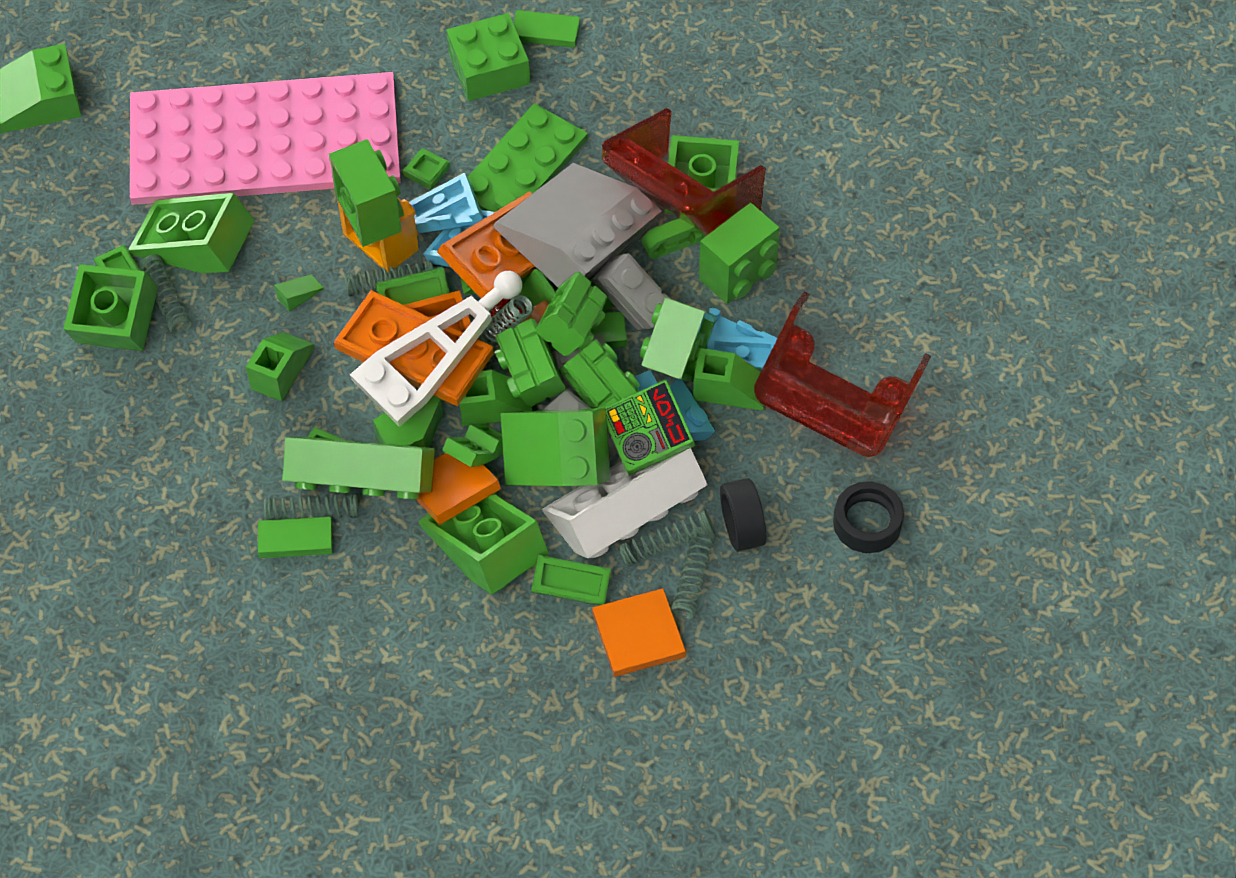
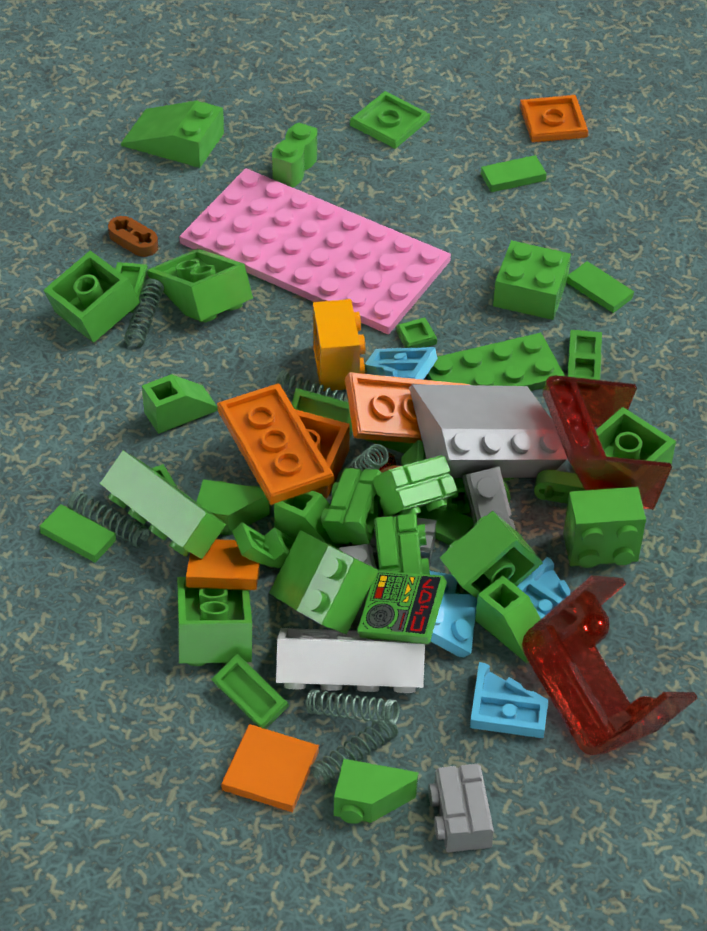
camera: 35 degrees right, 10 degrees down
(84, 223) = (135, 233): none -> dark orange beam
(168, 53) = (294, 154): none -> bright green brick
(297, 291) = (241, 364): bright green piece -> none
(366, 192) = (325, 304): bright green brick -> none
(391, 390) = (225, 451): white plate -> none
(587, 105) = (585, 354): none -> bright green slope
(735, 598) = (371, 791): none -> bright green slope
(743, 514) = (428, 726): black tyre -> none
(779, 457) = (507, 706): none -> medium azure wing
(817, 564) = (462, 808): none -> light grey brick
(864, 541) = (538, 824): black tyre -> none

